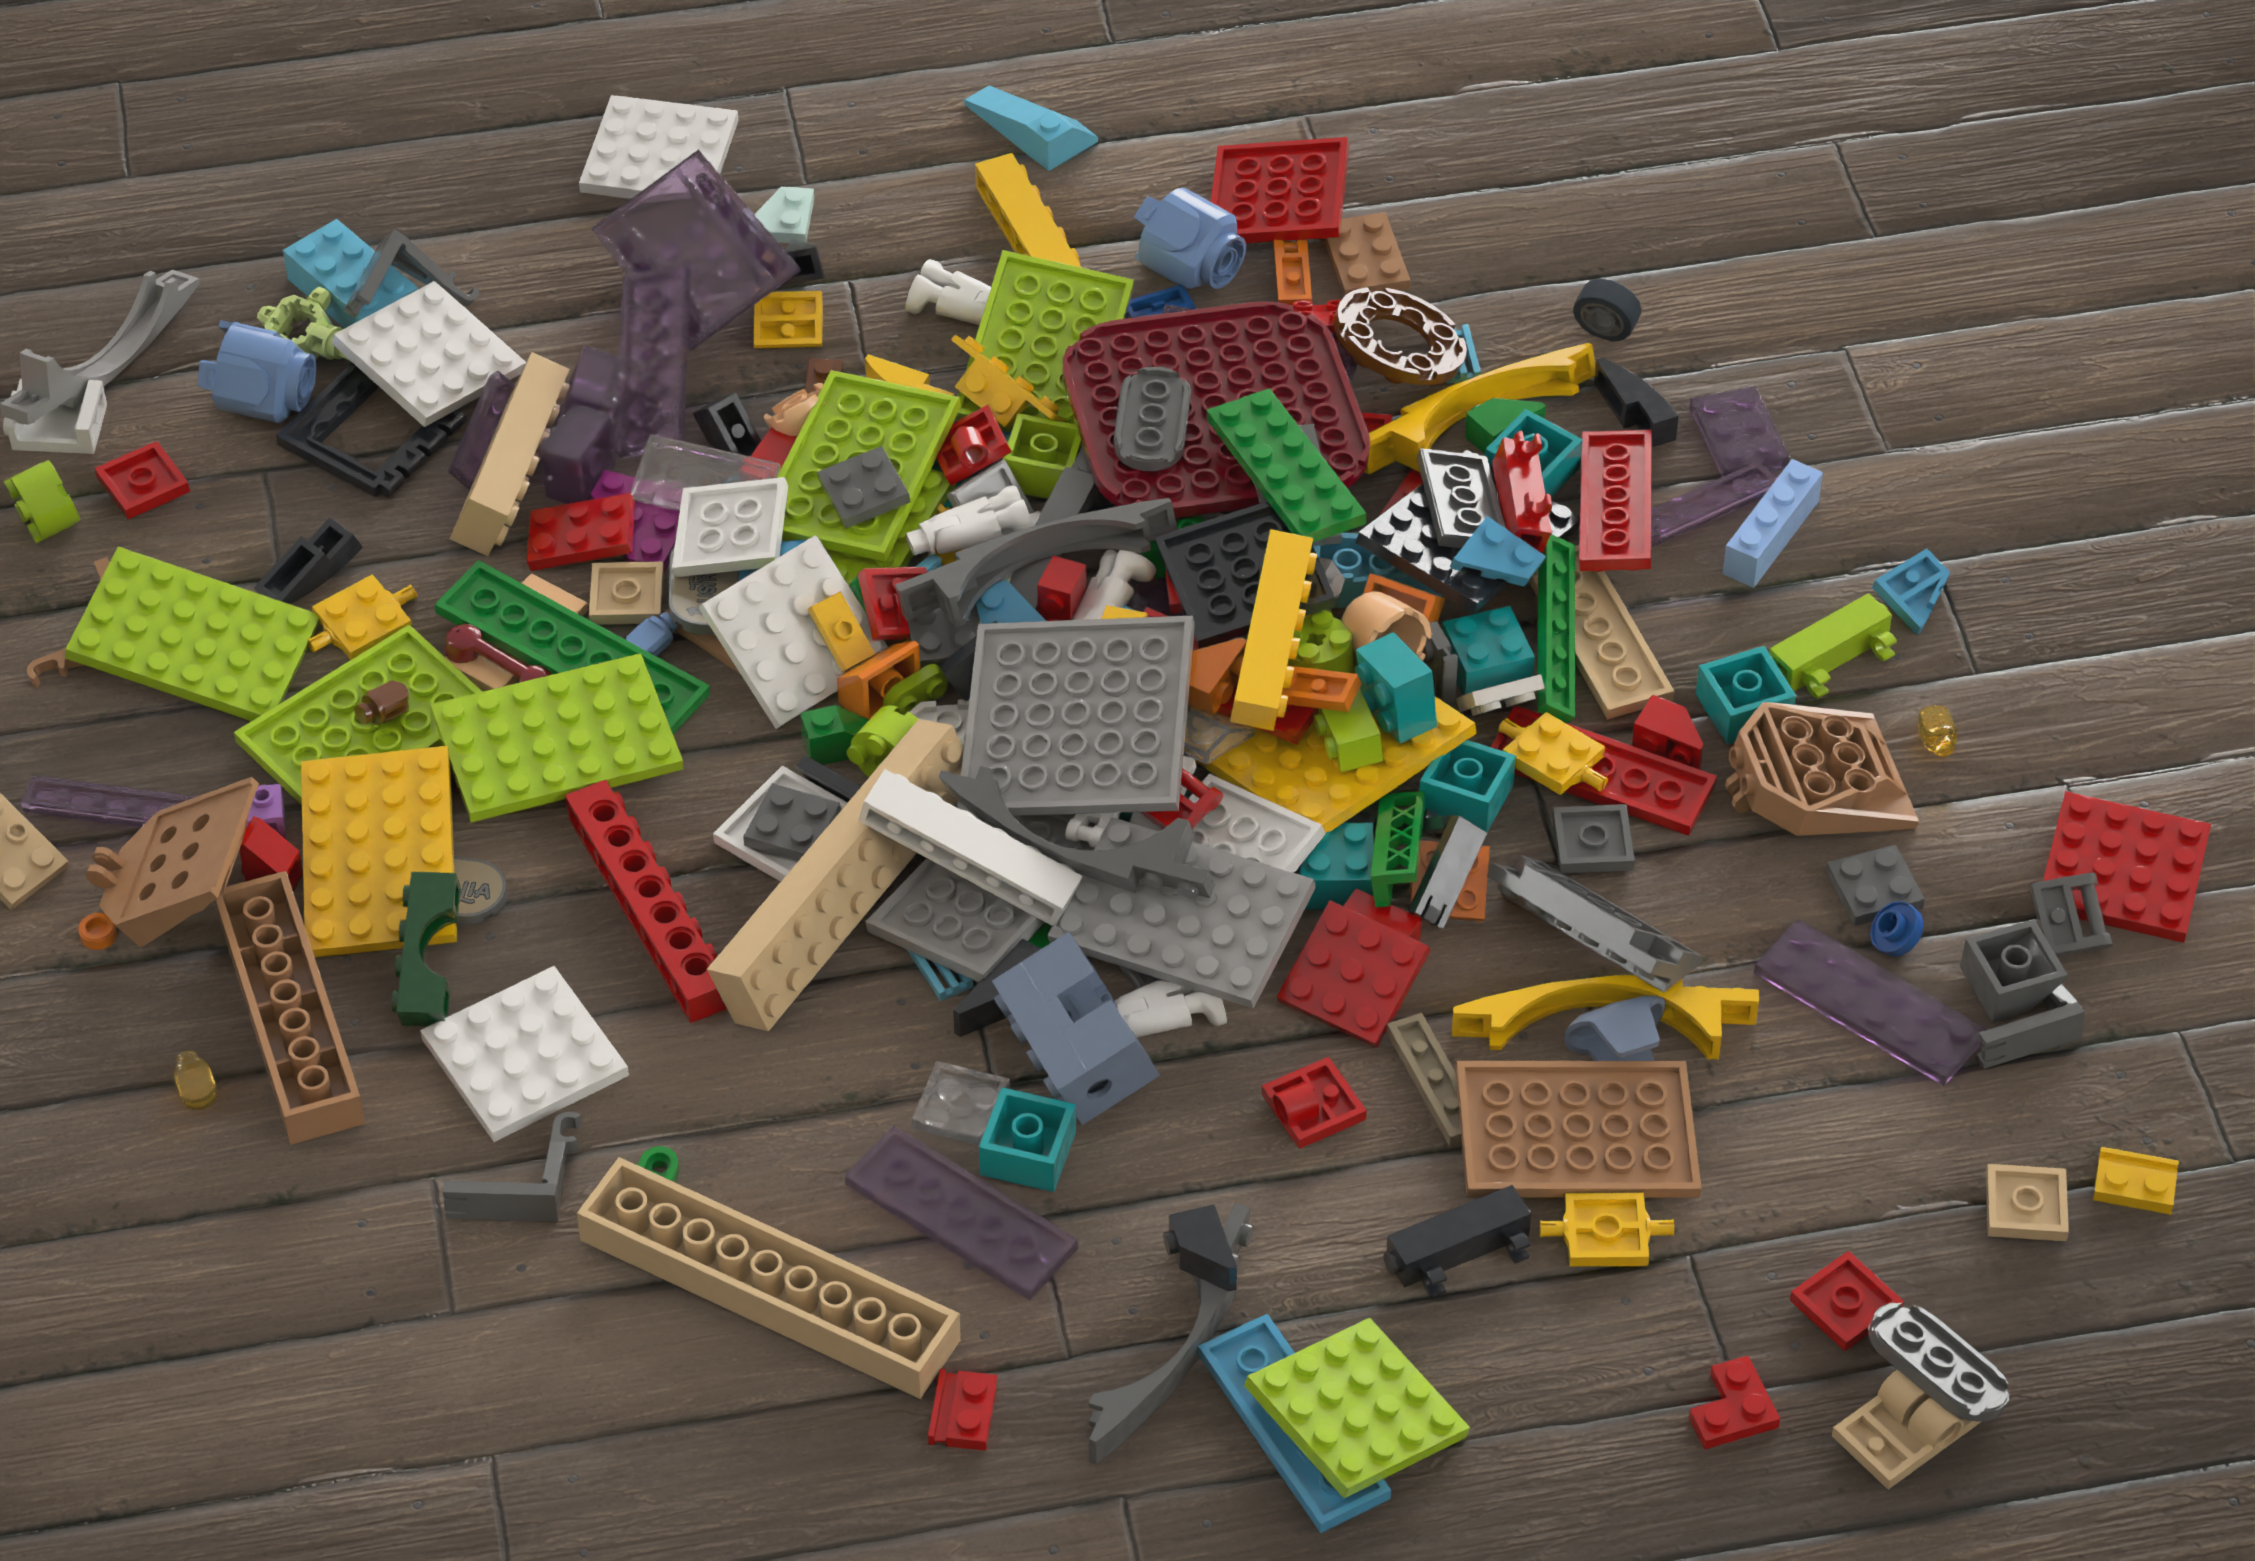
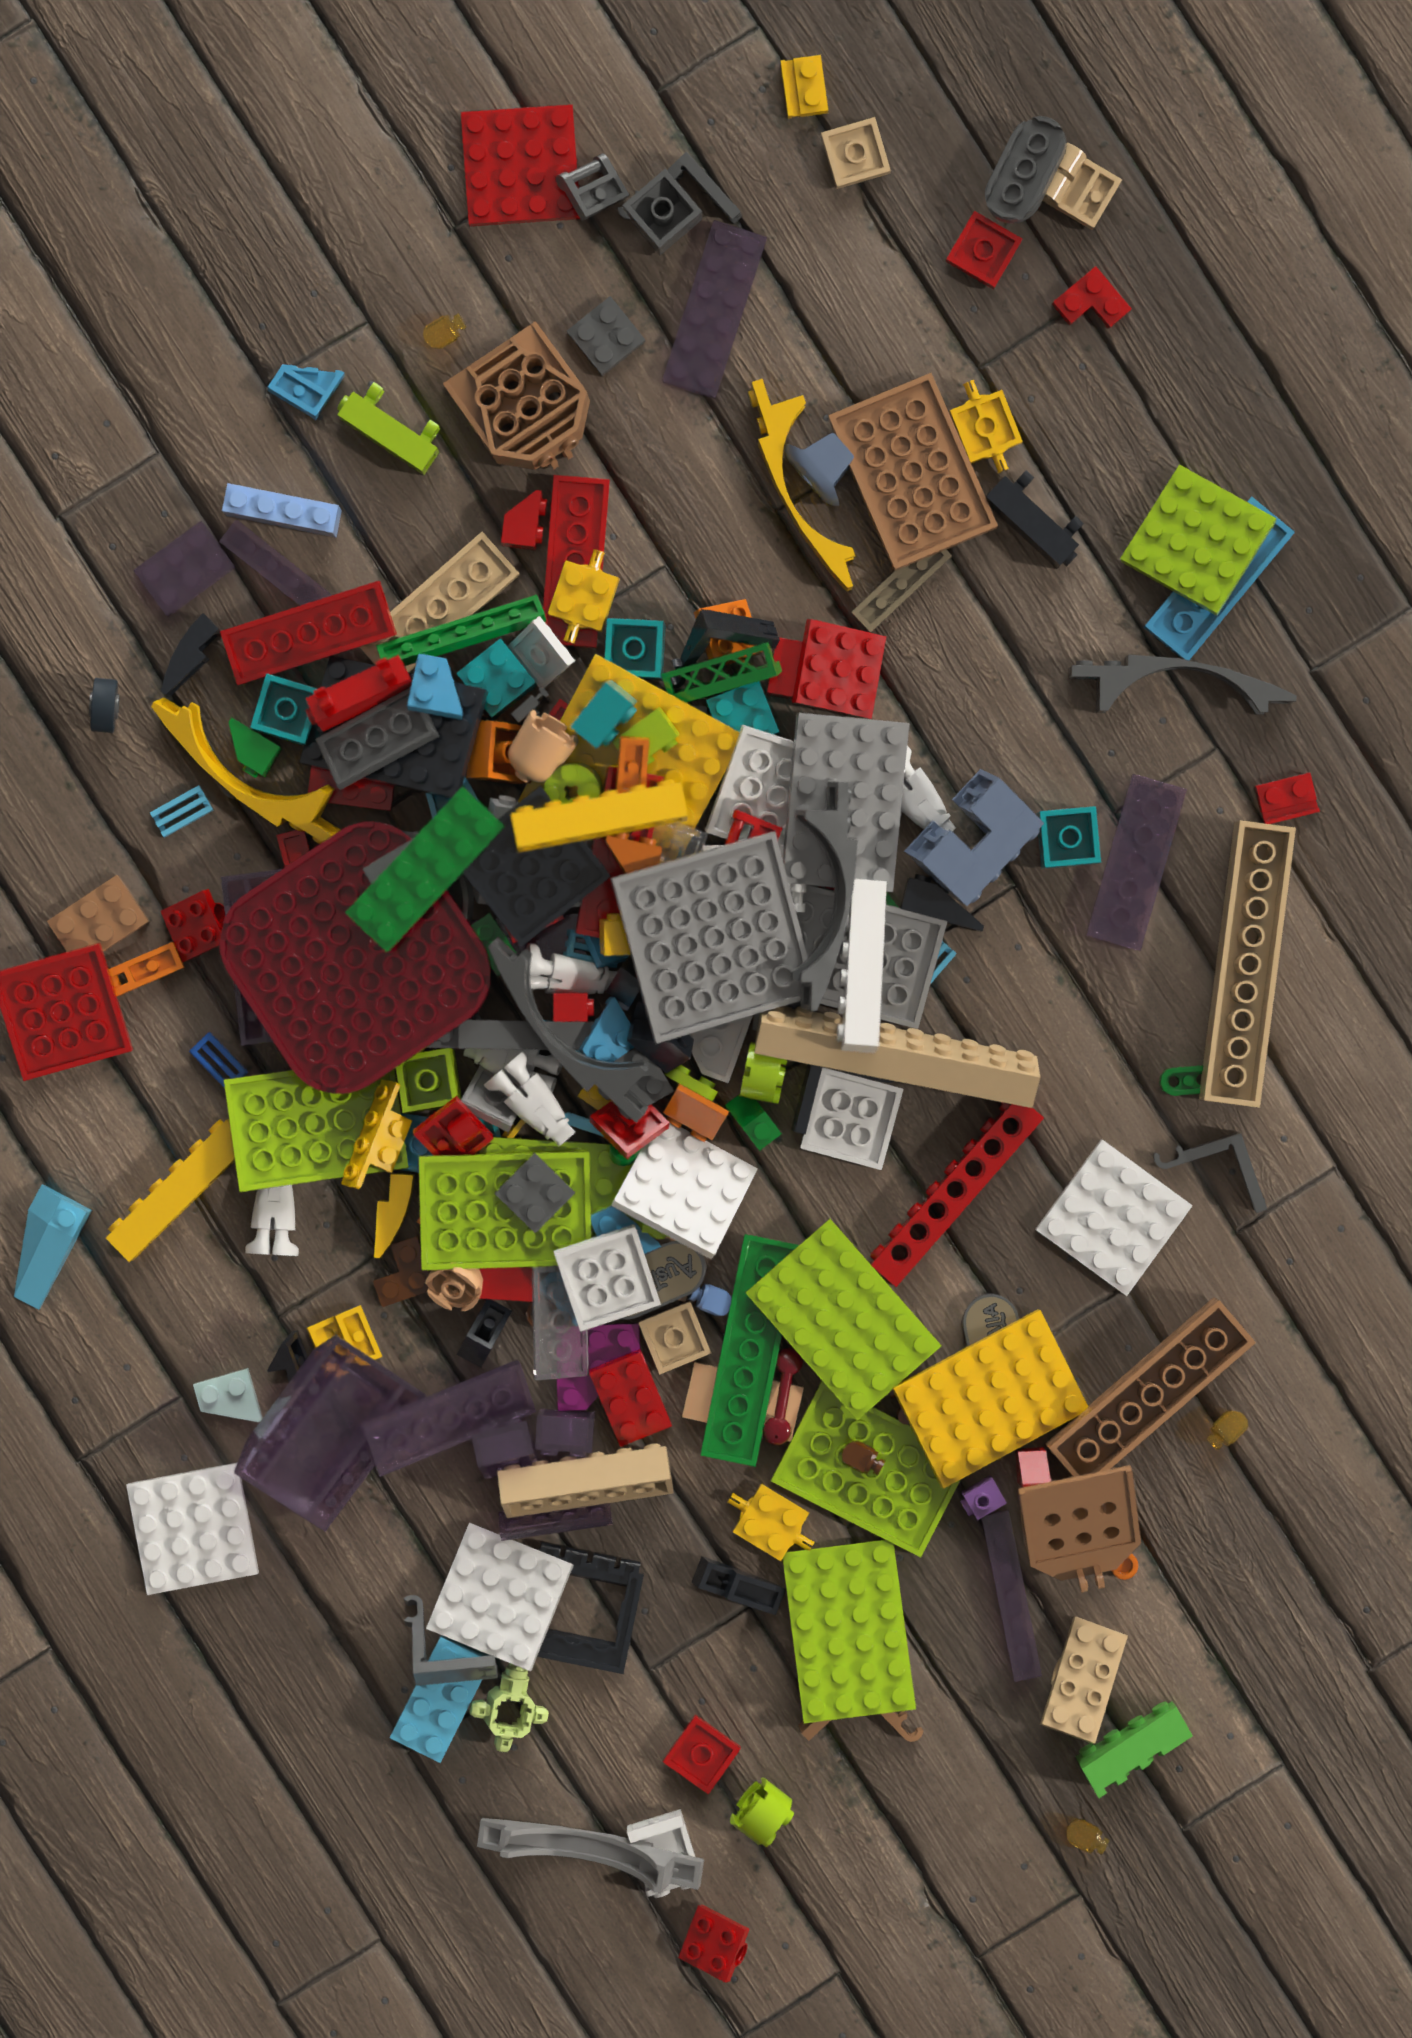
camera: 110 degrees left, 40 degrees up
(258, 374) = (578, 1713): medium blue piece -> none
(431, 905) = (1099, 1307): dark green arch -> none
(789, 822) = (856, 1115): dark grey plate -> none
(841, 631) = (675, 1152): yellow plate -> none
(957, 1102) = (1046, 899): clear plate -> none
(1152, 419) = (396, 996): dark grey tile -> none
(1189, 240) = (162, 1051): medium blue piece -> none
(1202, 1246) = (1127, 680): black slope -> none
(1314, 1102) = (954, 659): red plate -> none
(1363, 307) = (170, 839): reddish brown plate -> none
(1593, 838) = (643, 546): dark grey plate -> none
(1595, 922) = (732, 515): dark grey slope -> none
(1737, 686) = (471, 476): teal brick -> none
(1896, 928) = (650, 305): blue plate -> none

